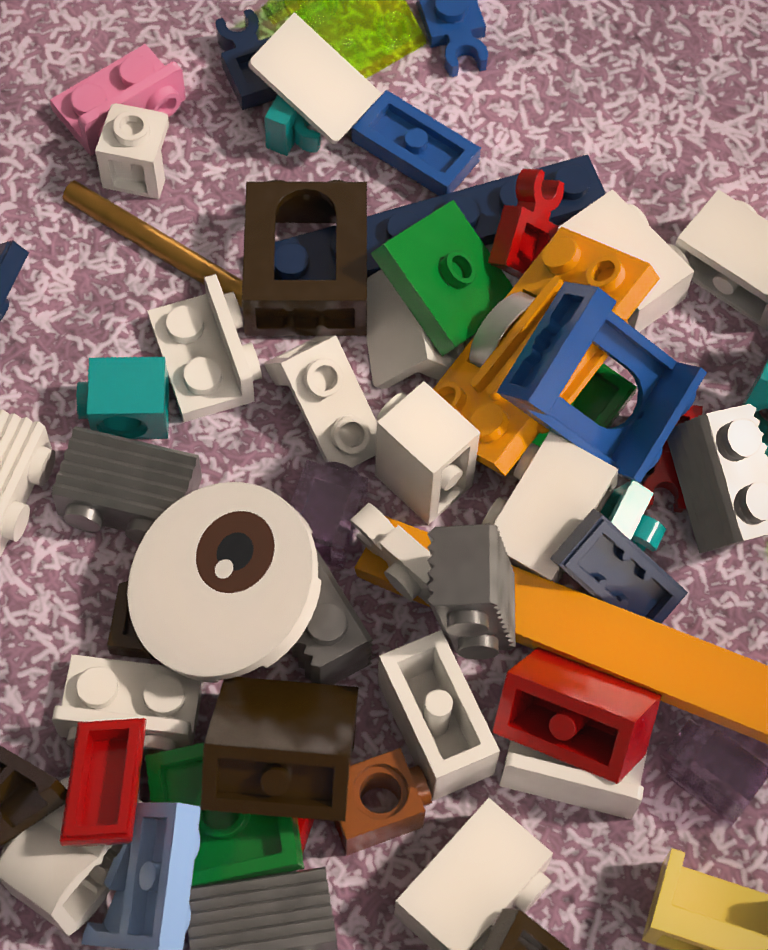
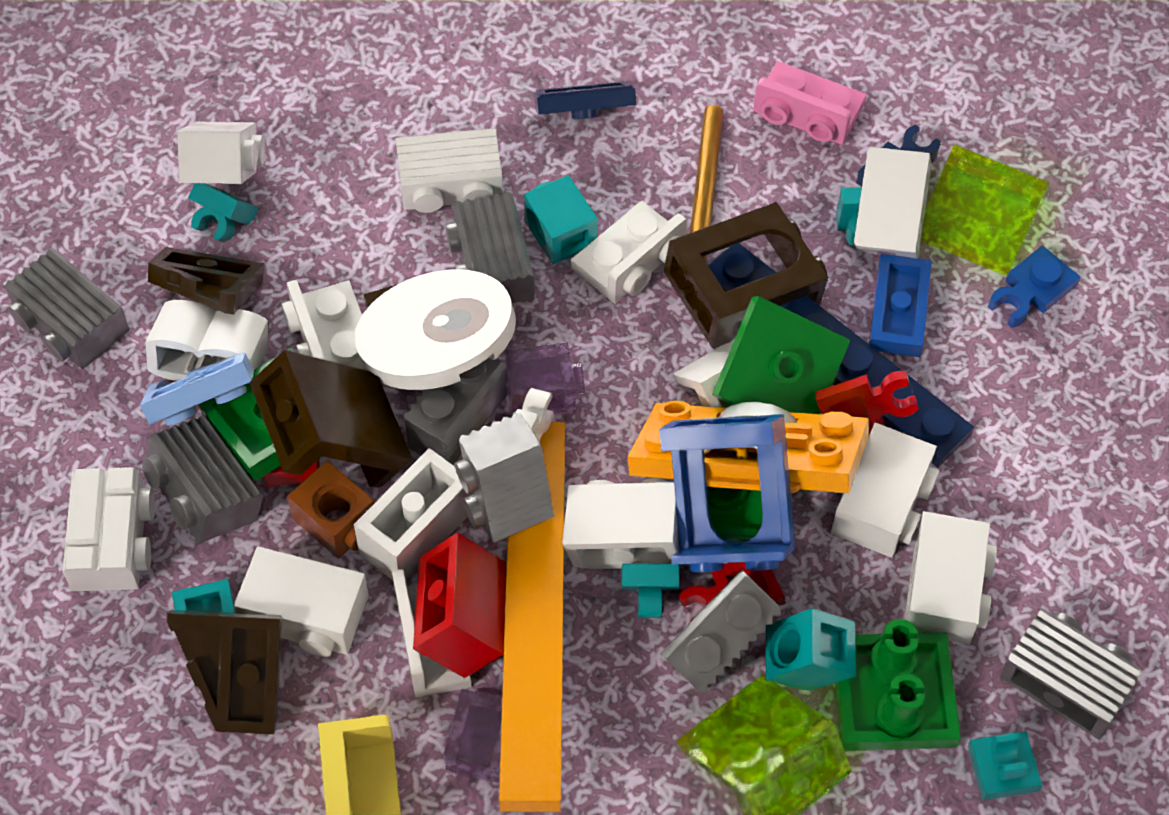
camera: 65 degrees right, 5 degrees down
(103, 783) = (250, 327): red tile -> none
(131, 150) = (759, 119): white bracket -> none
(328, 399) = (633, 345): white bracket -> none
(425, 451) = (615, 412): white brick -> none
(617, 569) = (595, 591): plate -> none

